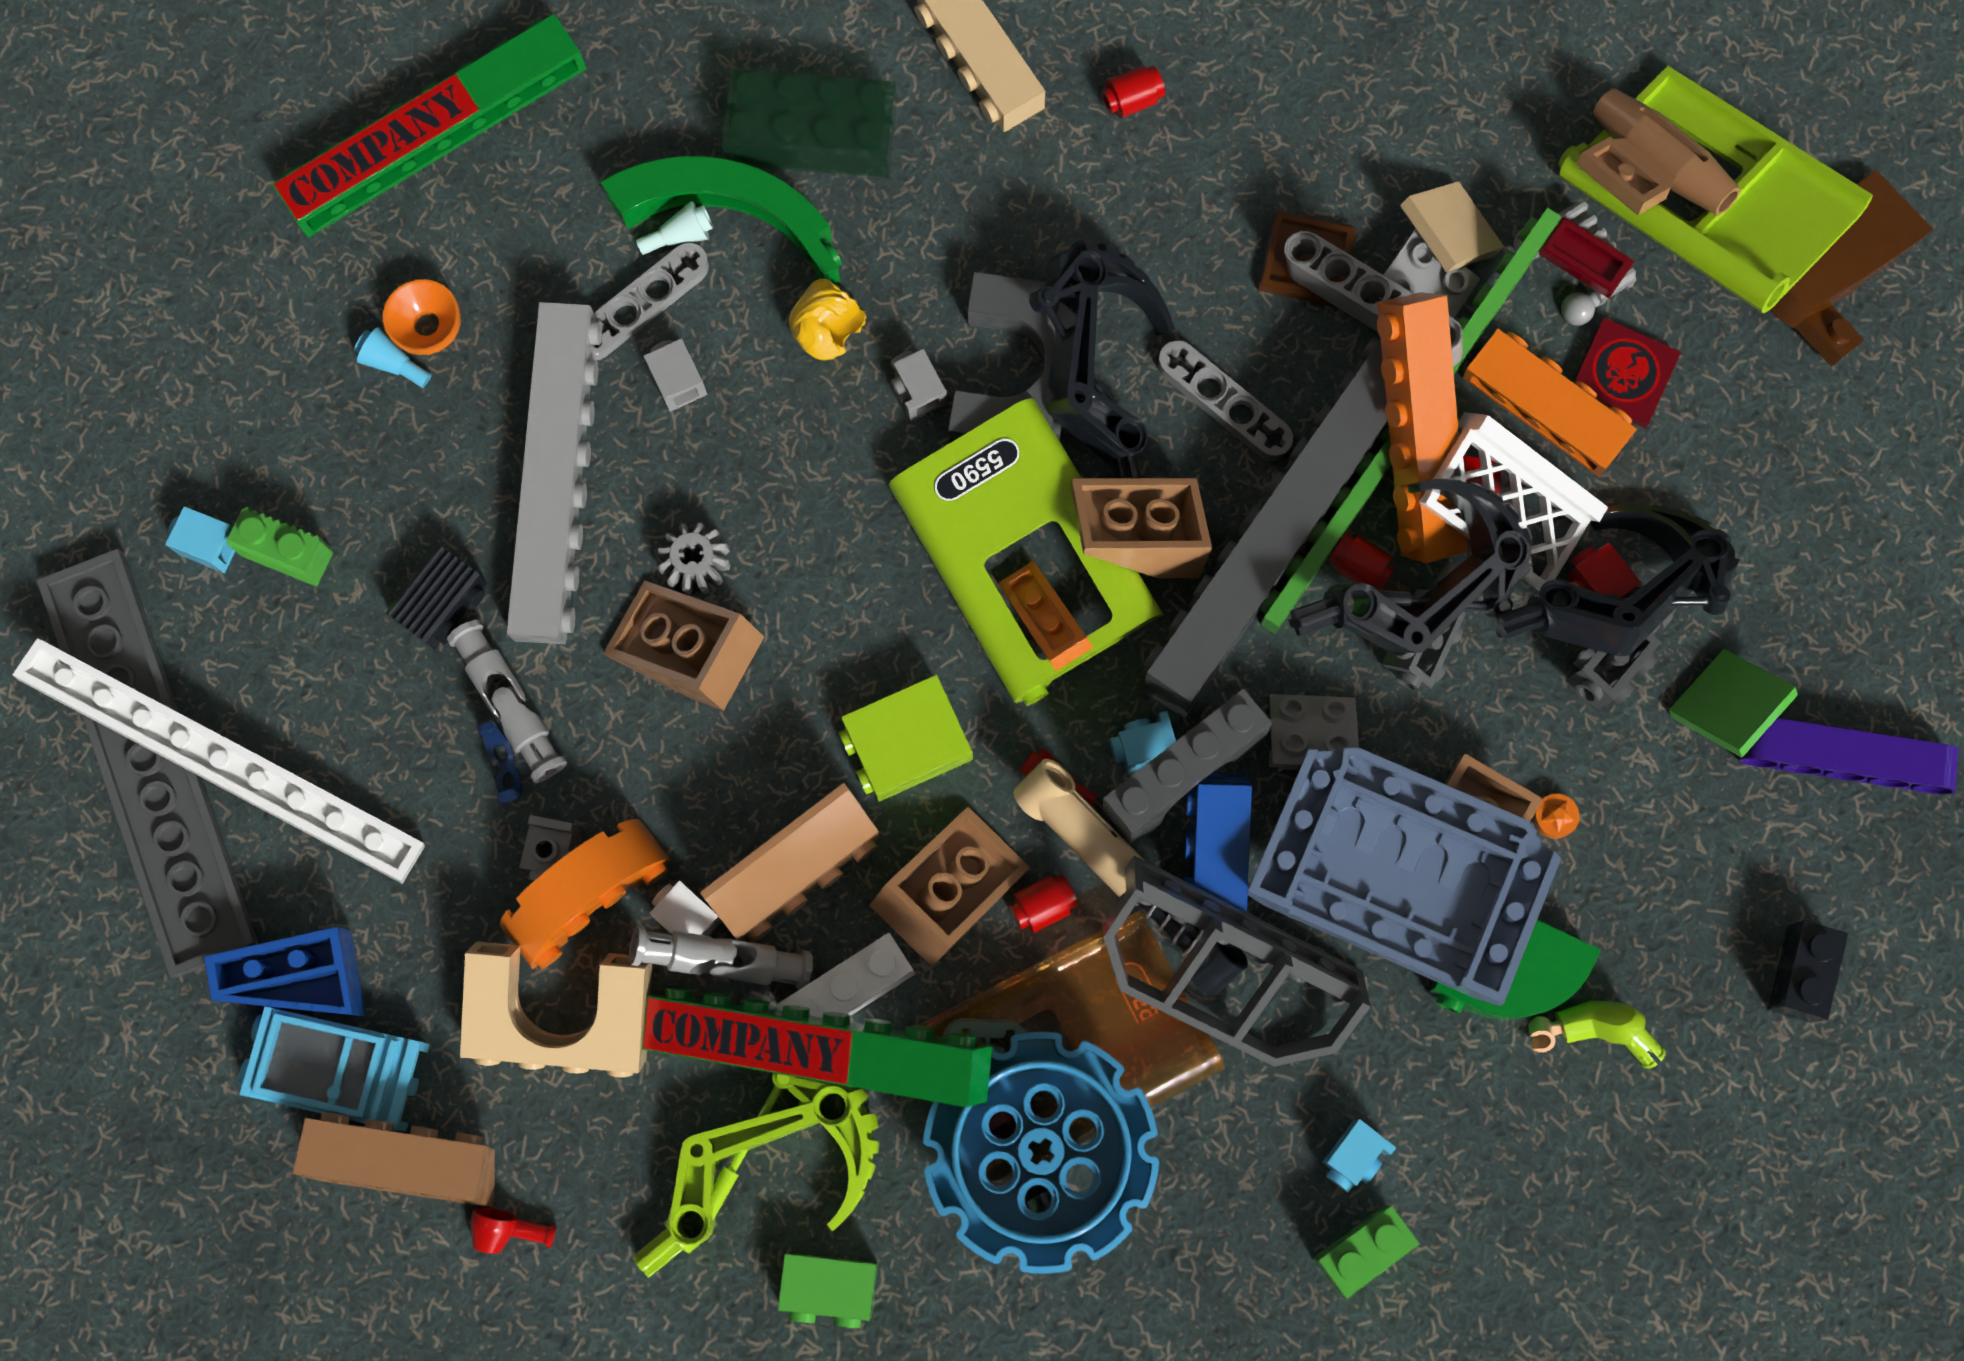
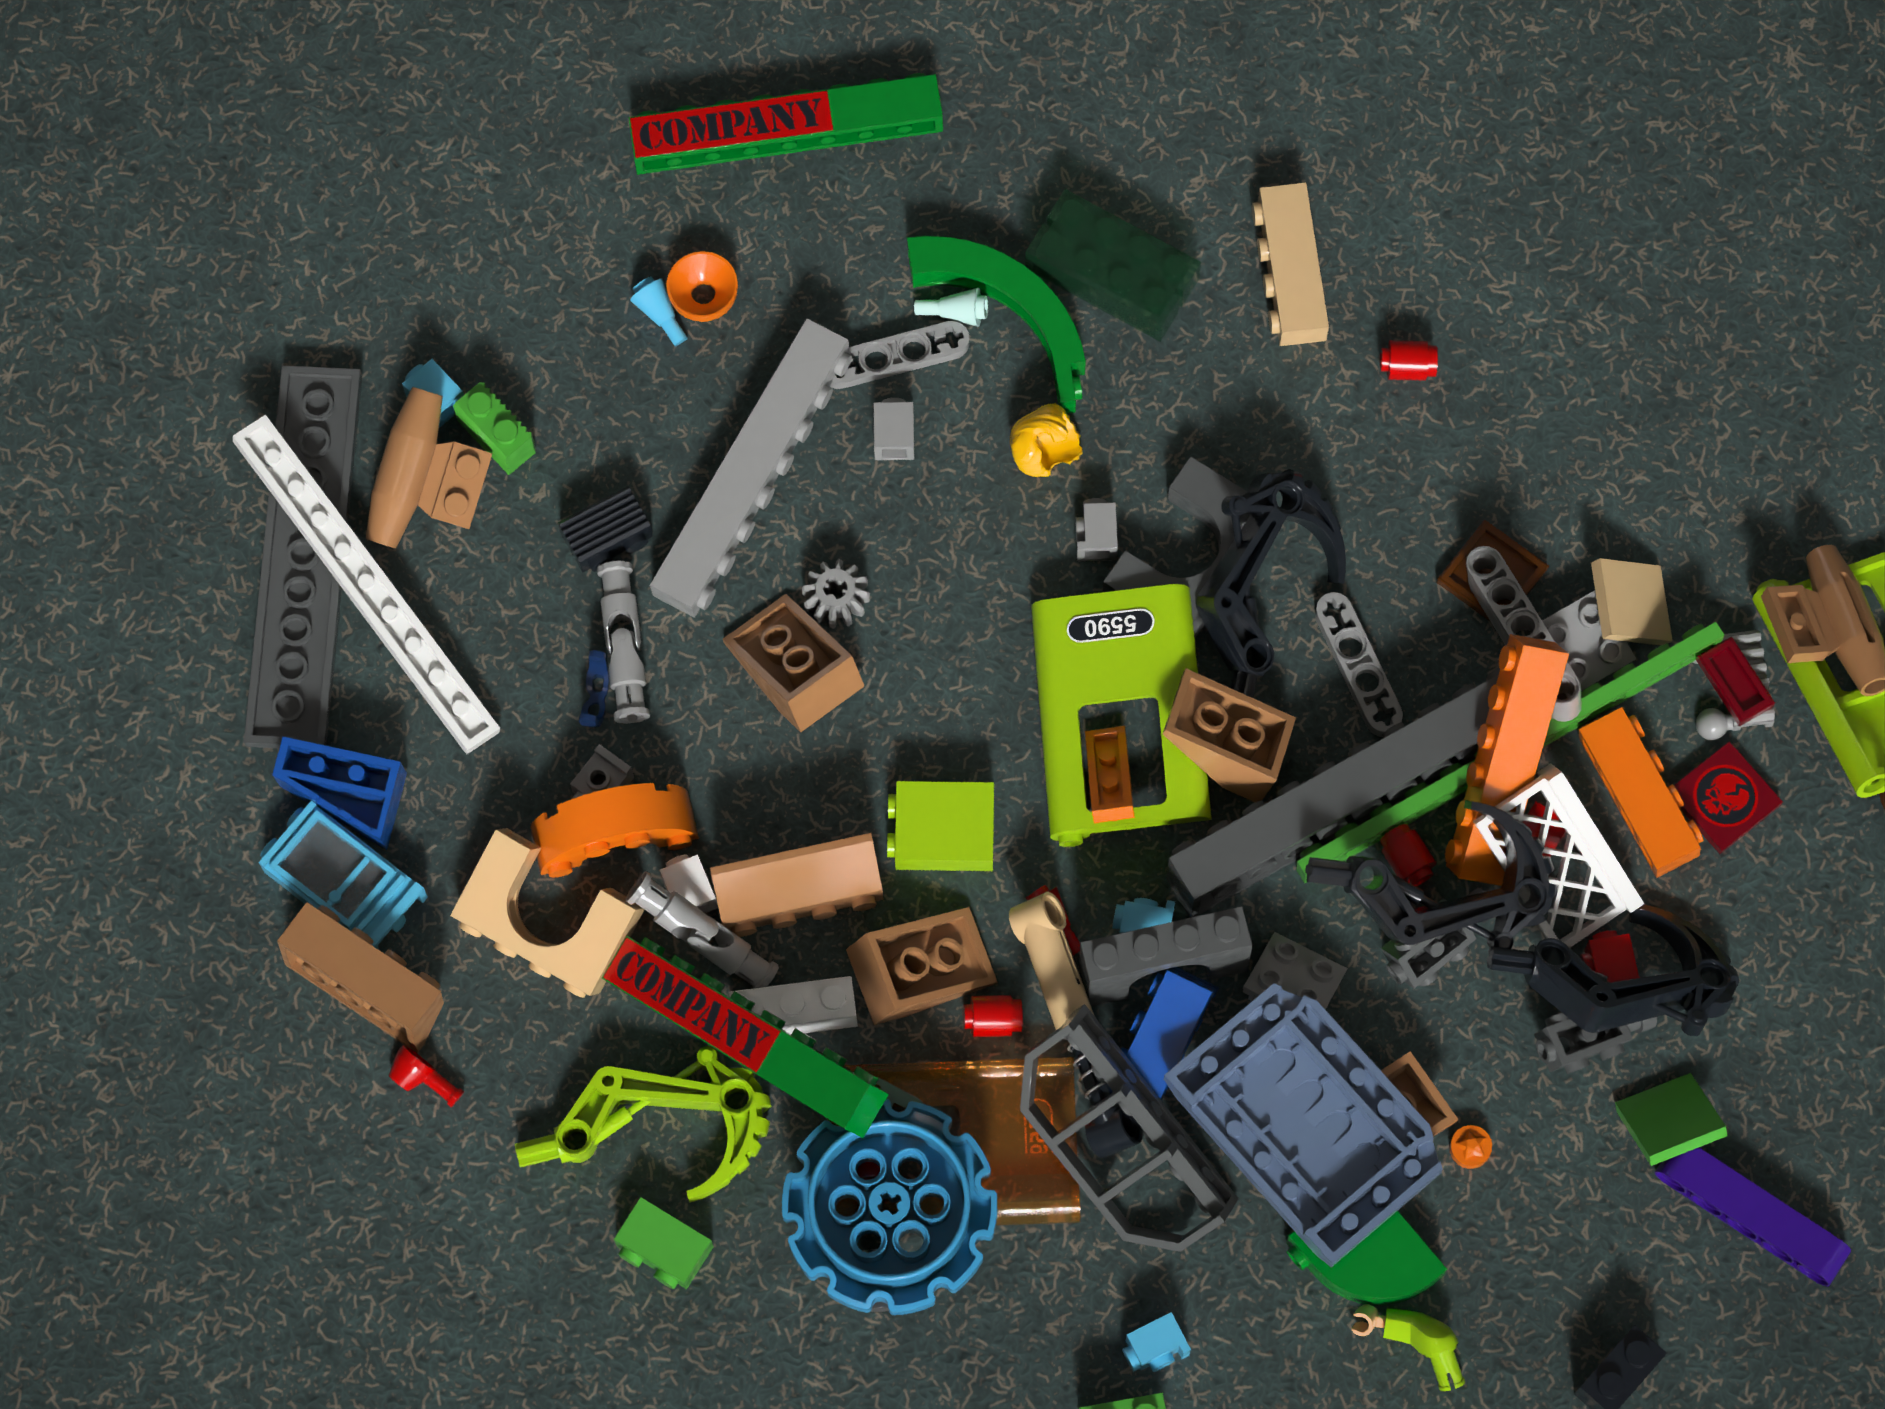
camera: 25 degrees right, 5 degrees down
(224, 624) = (421, 473): none -> medium nougat plate

